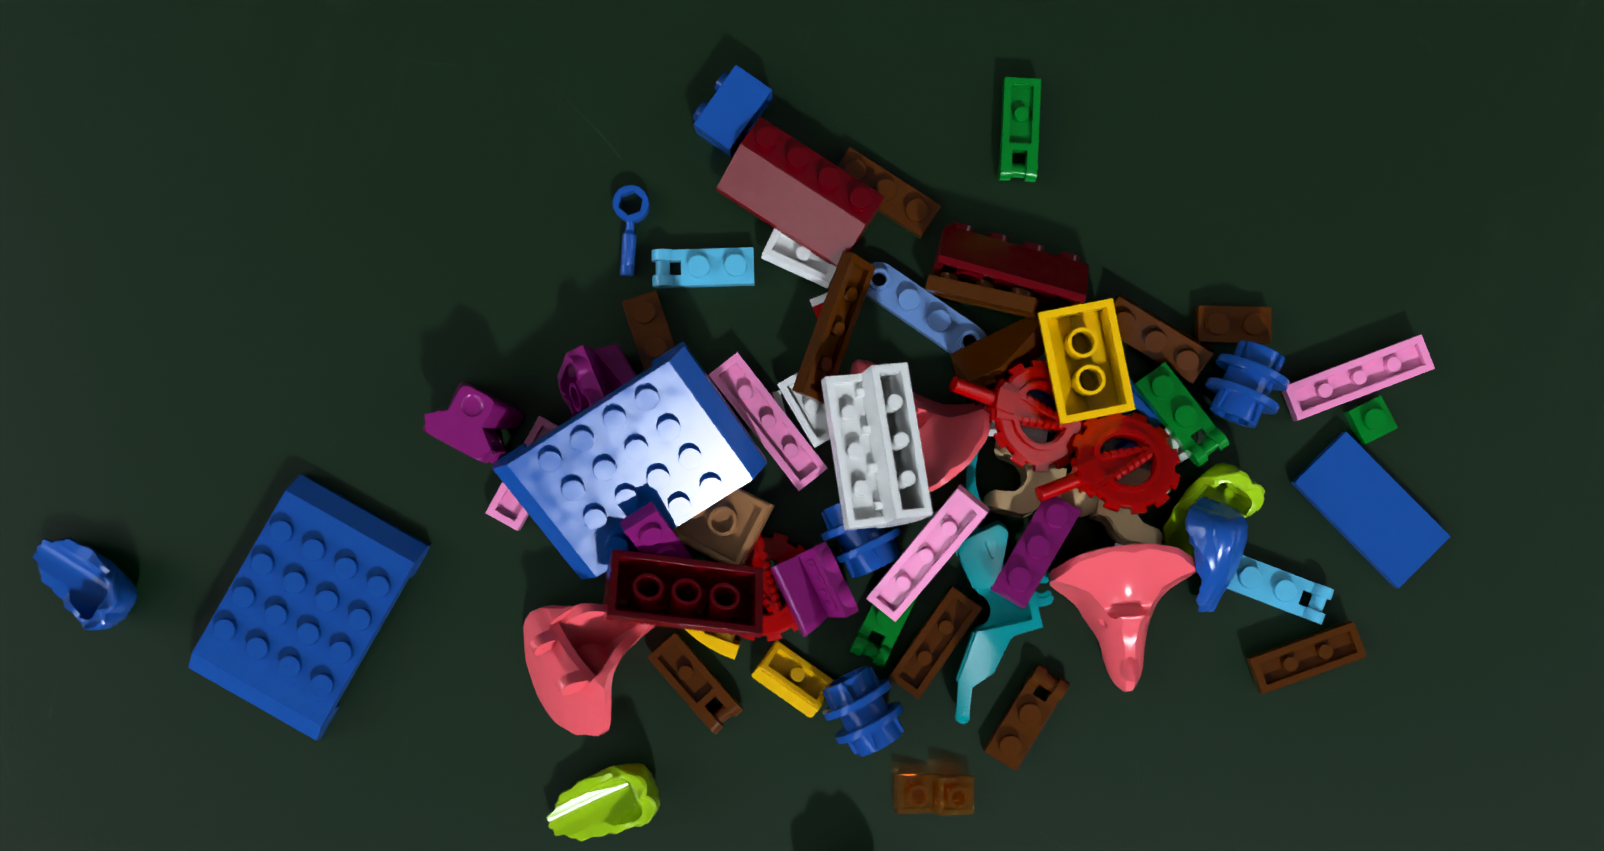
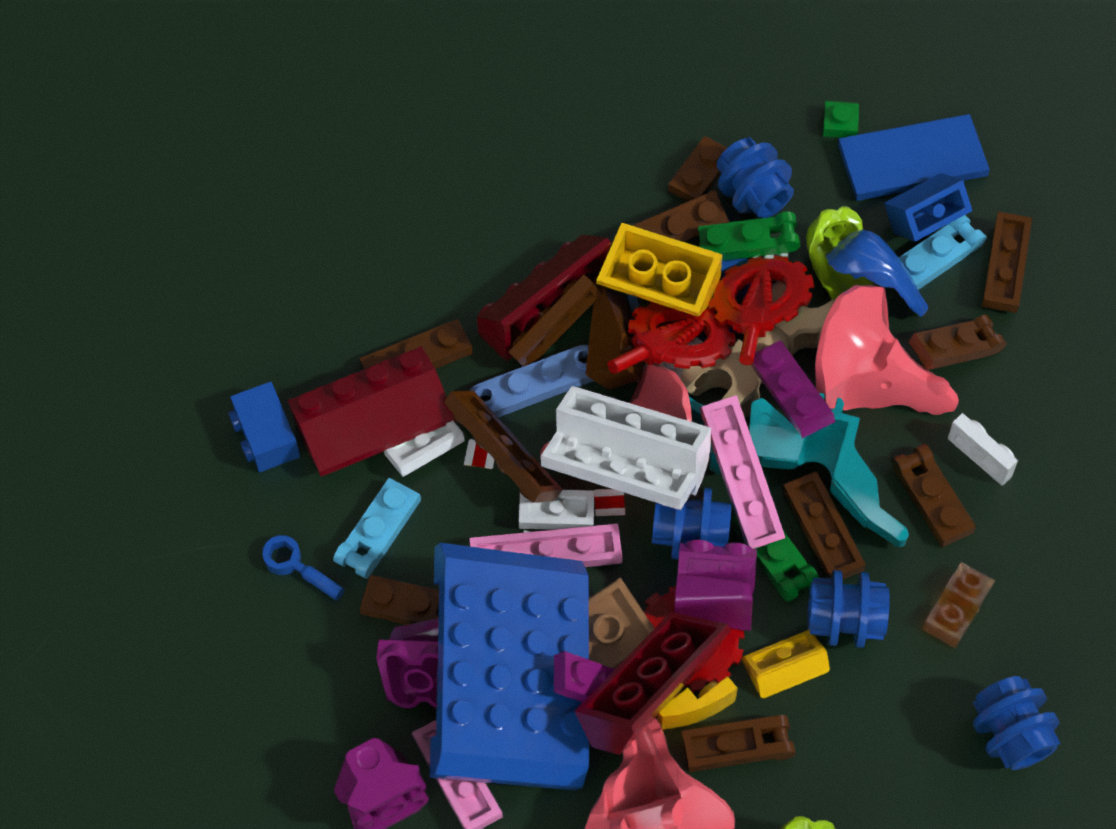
camera: 55 degrees left, 25 degrees down
(1020, 128) = (437, 229): green plate -> none
(1099, 724) = (982, 449): none -> white plate
(1186, 660) = (957, 343): none -> reddish brown plate
(1317, 557) = (928, 207): none -> blue brick
(1357, 377) = (801, 108): bright pink plate -> none

